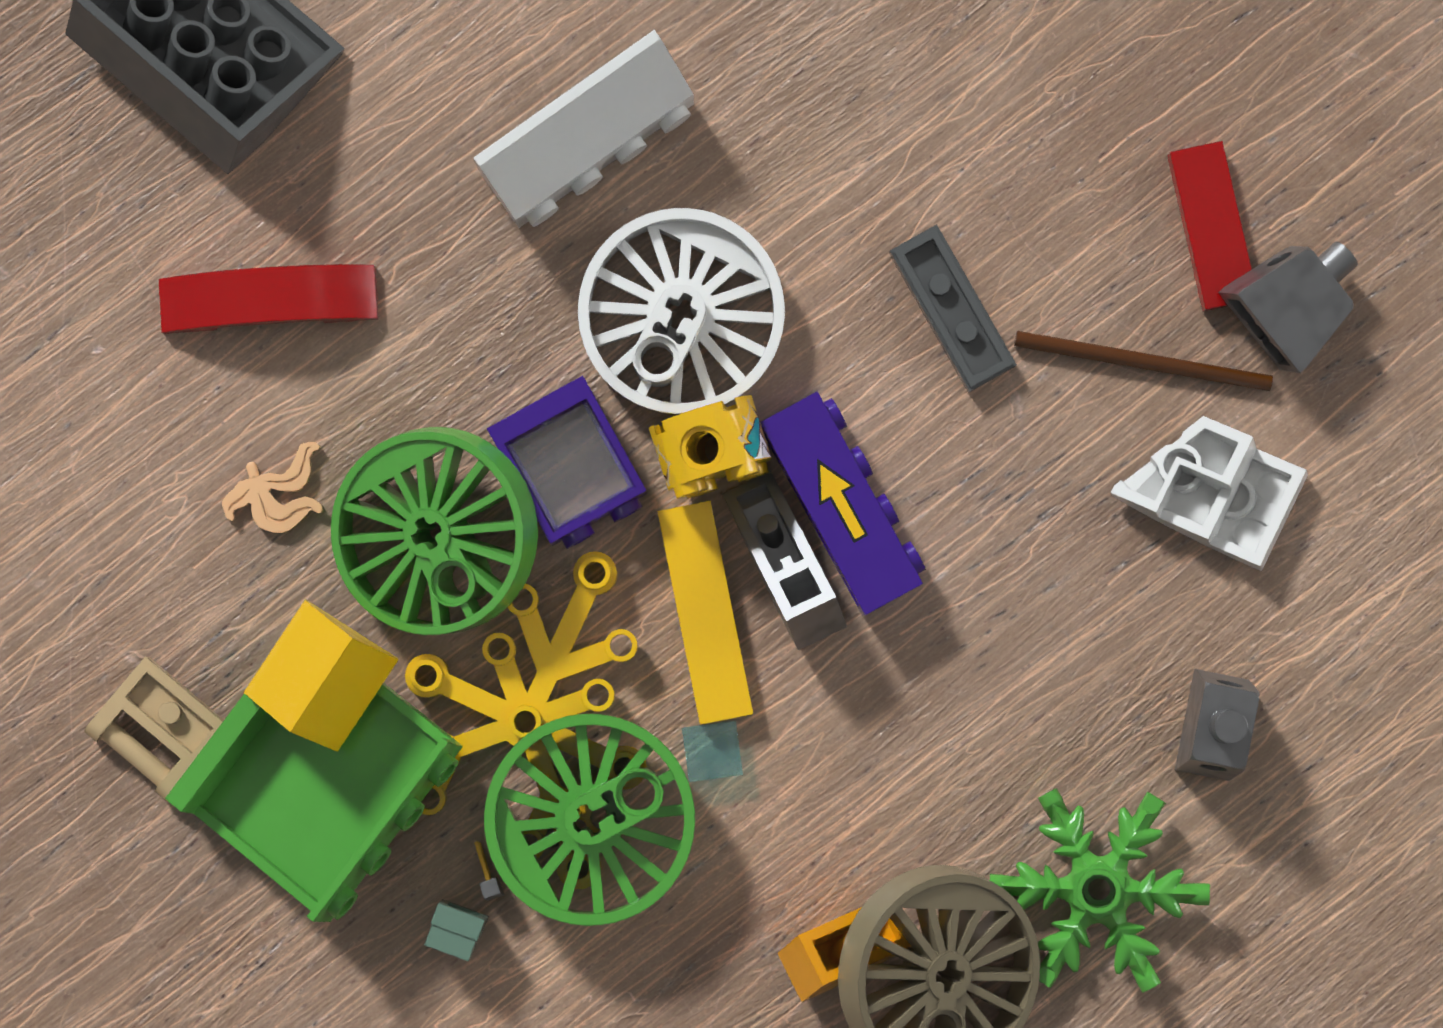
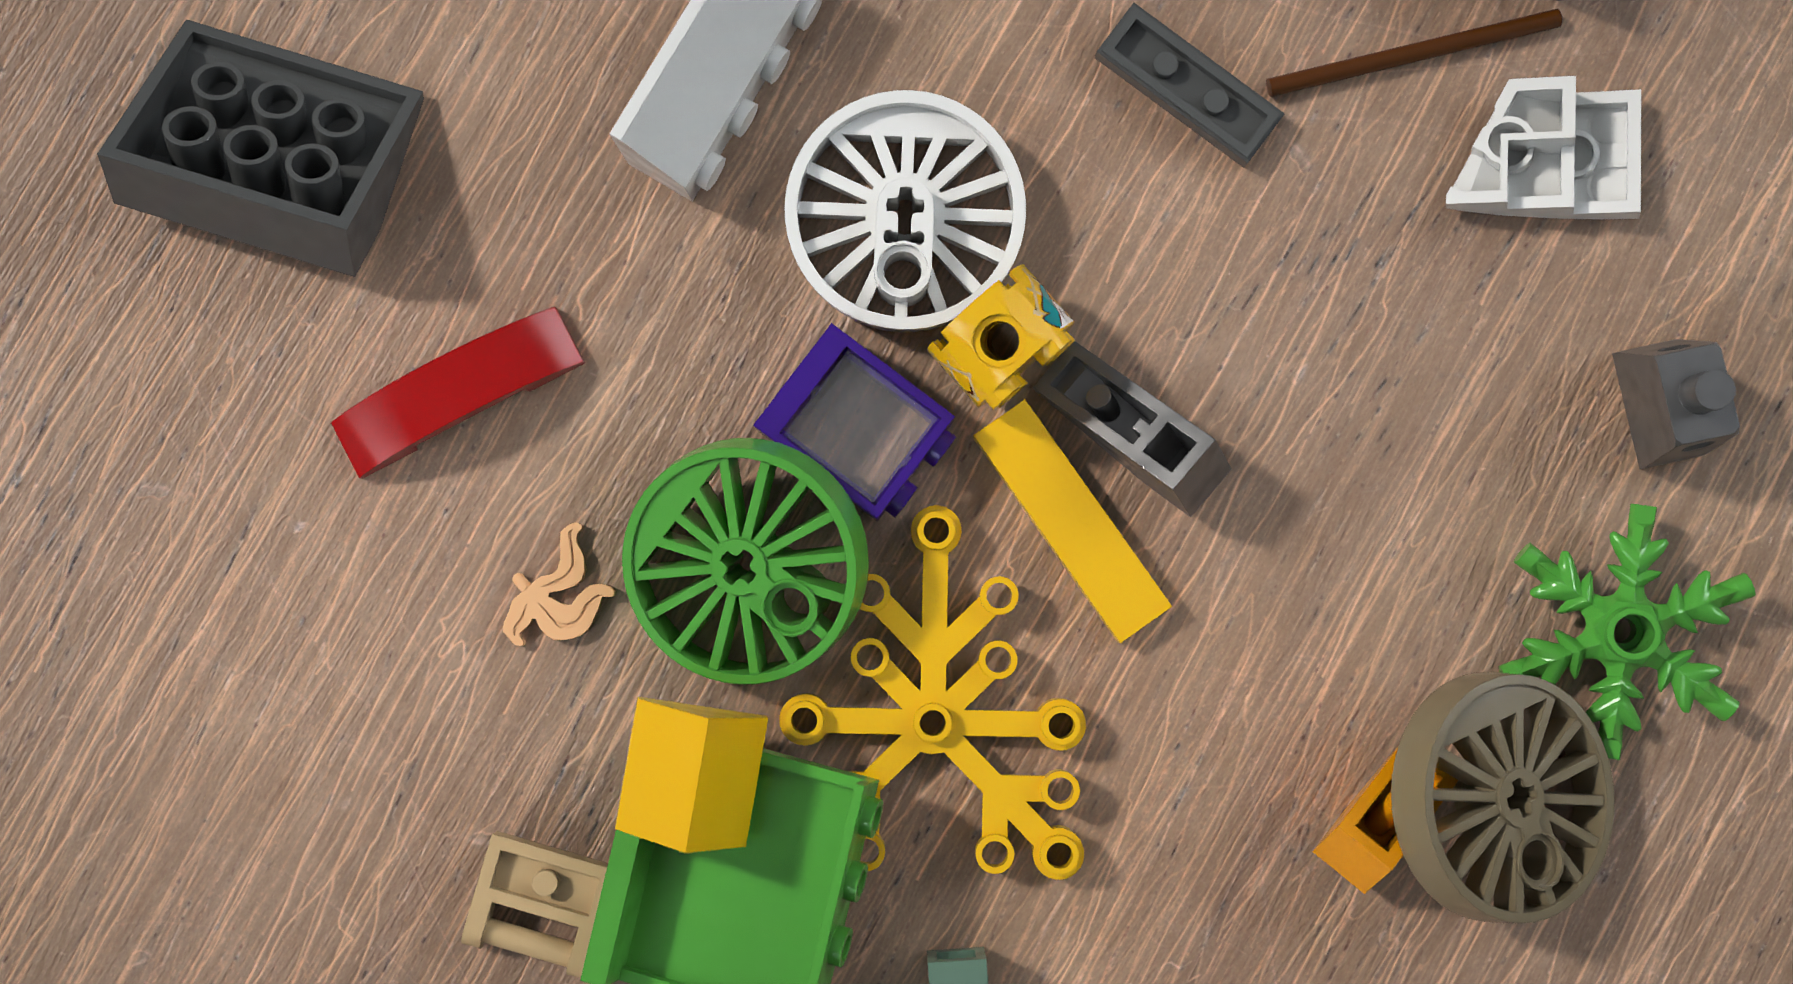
camera: 20 degrees left, 0 degrees up
(491, 887) = (975, 916): flat silver piece -> none
(517, 859) = (991, 875): bright green piece -> none
(712, 751) = (1144, 665): clear light blue tile -> none
(841, 503) = (1169, 341): dark purple brick -> none

